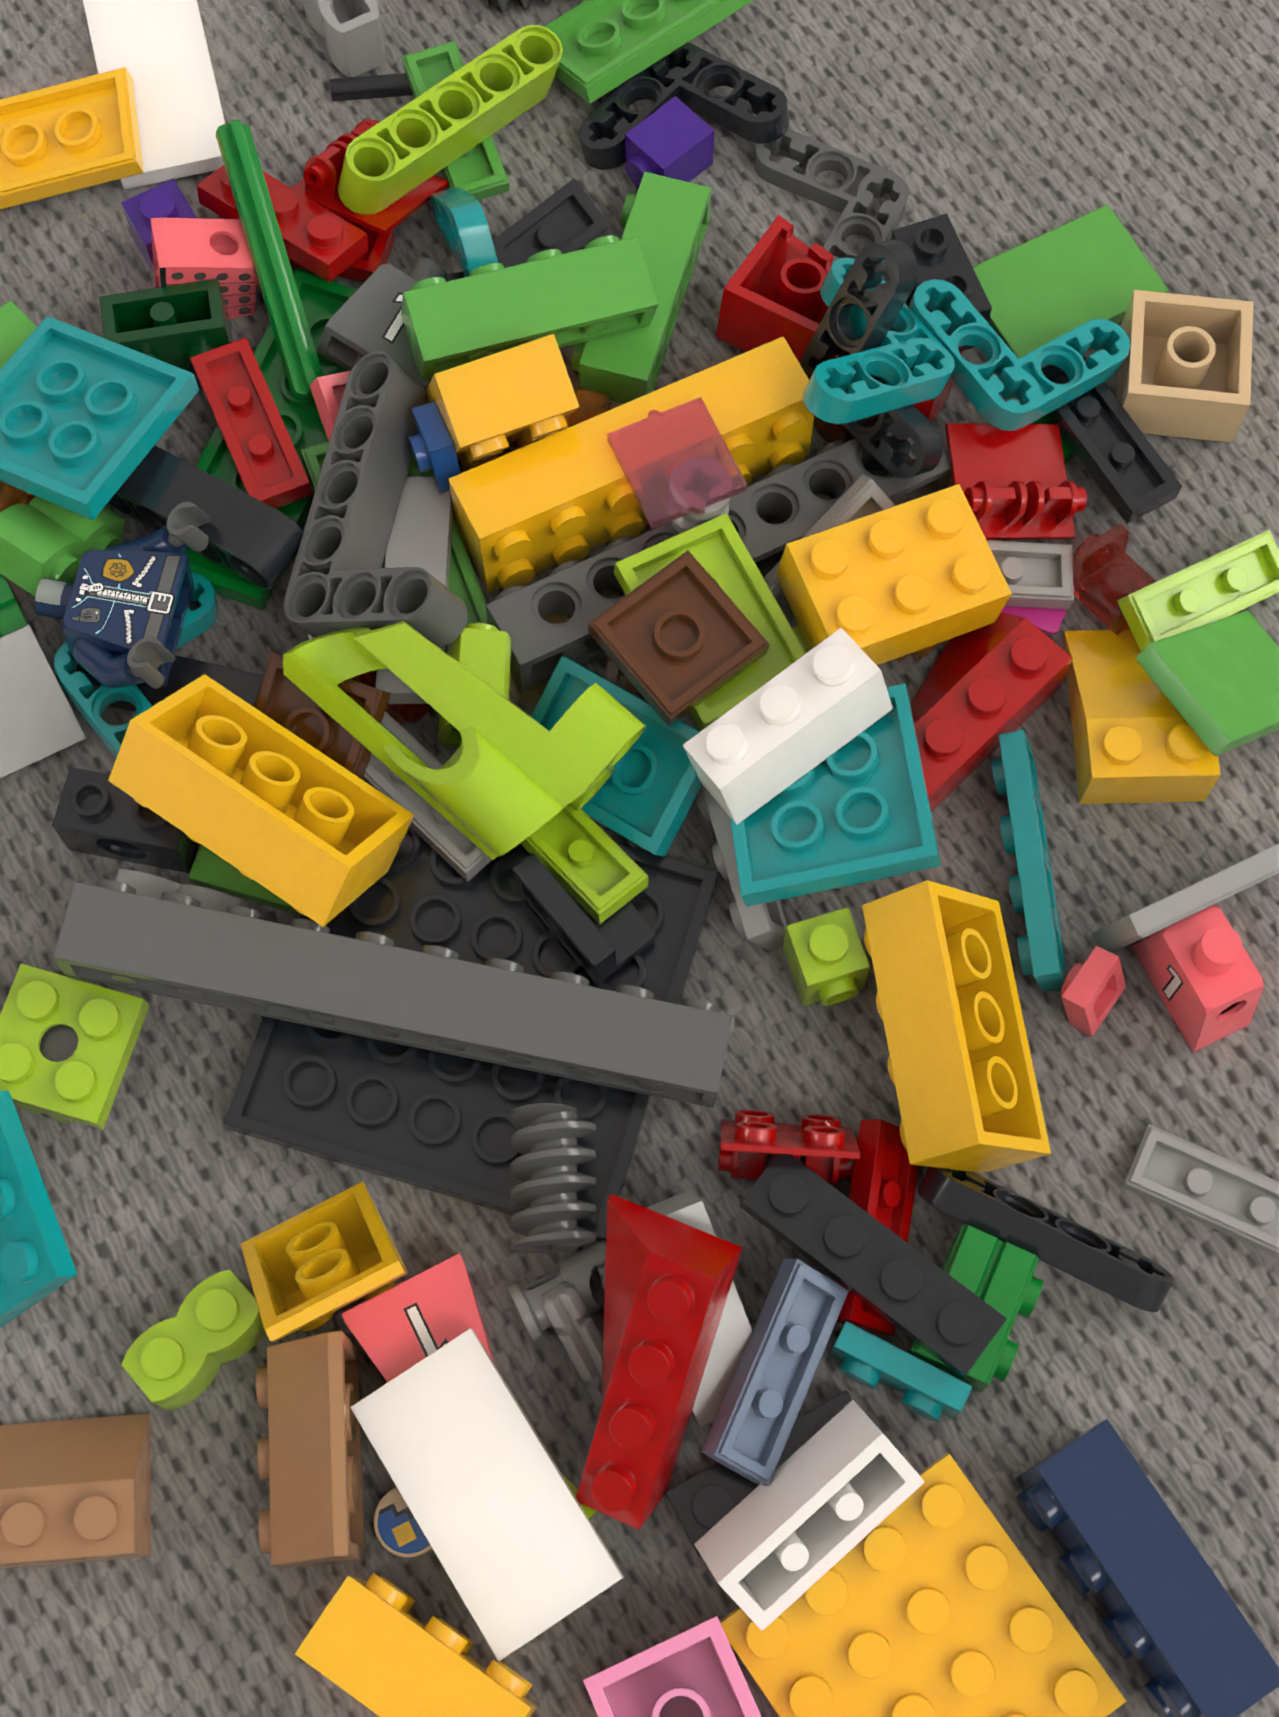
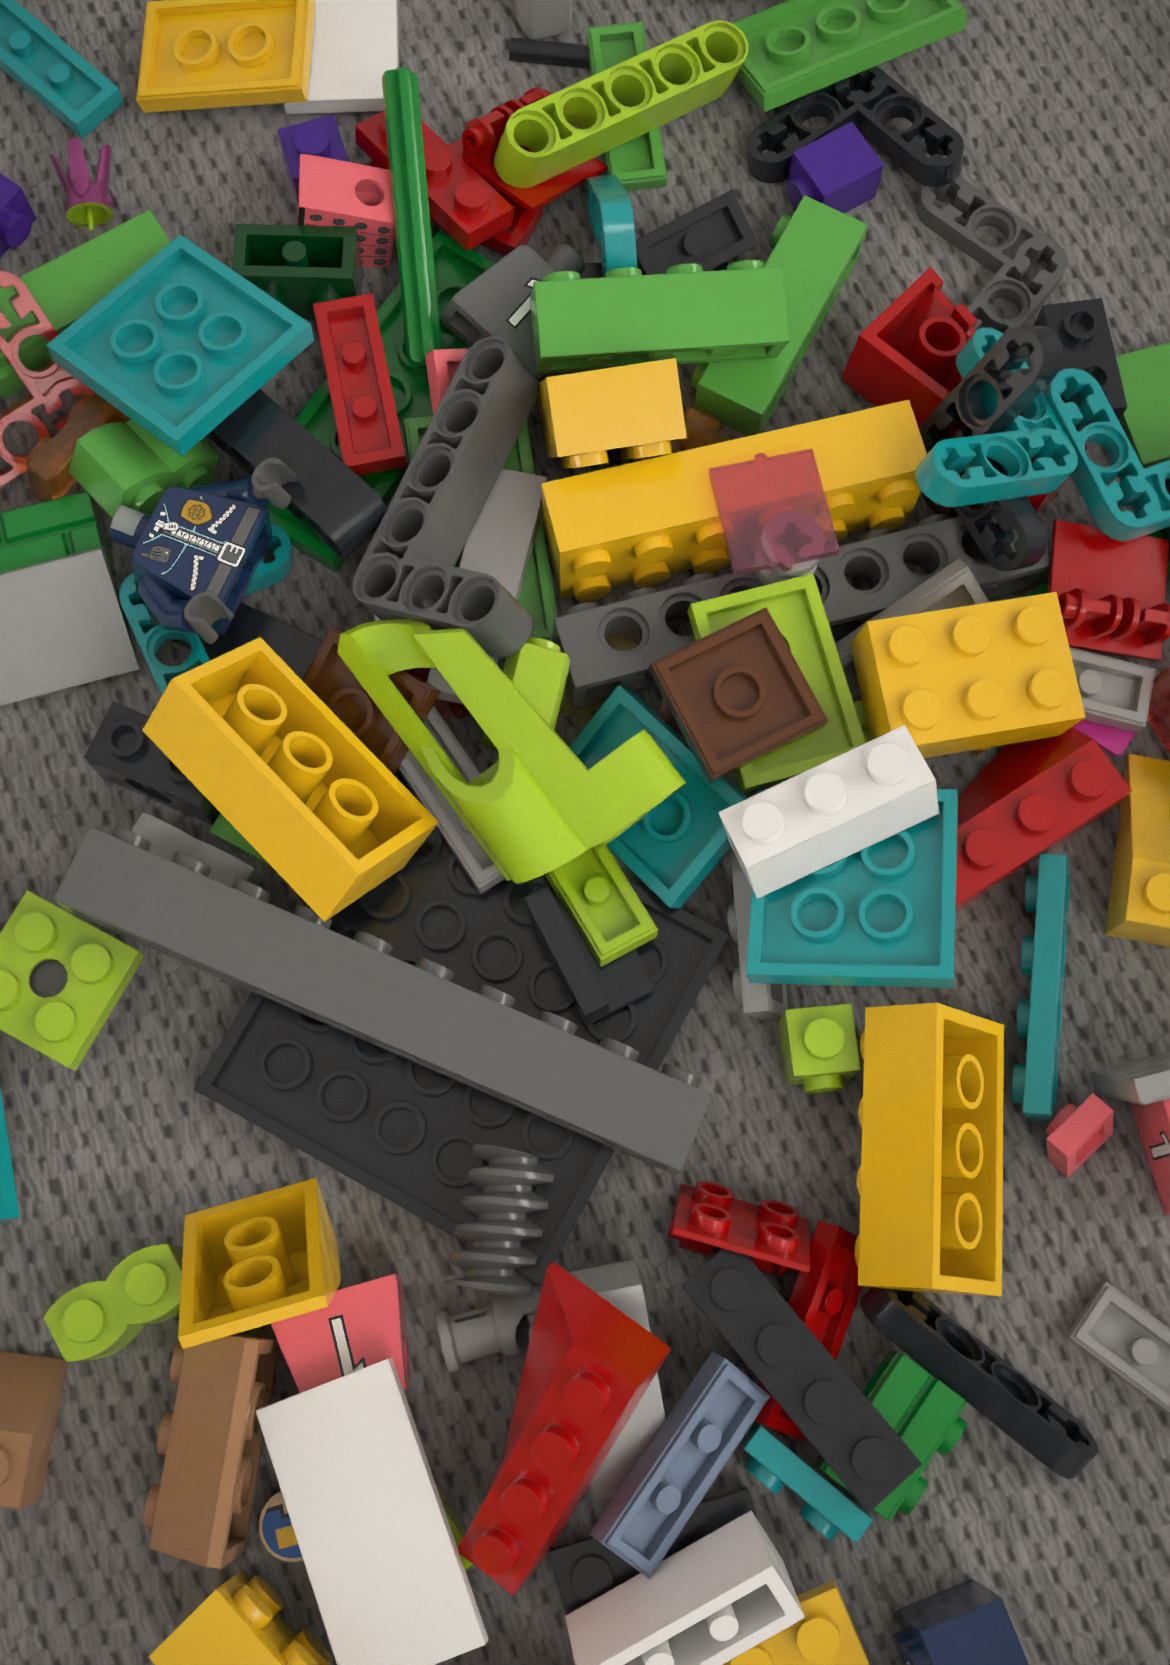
camera: 10 degrees right, 5 degrees up
(433, 445) = (533, 444): blue plate -> none
(577, 1335) = (493, 1379): light grey axle -> none

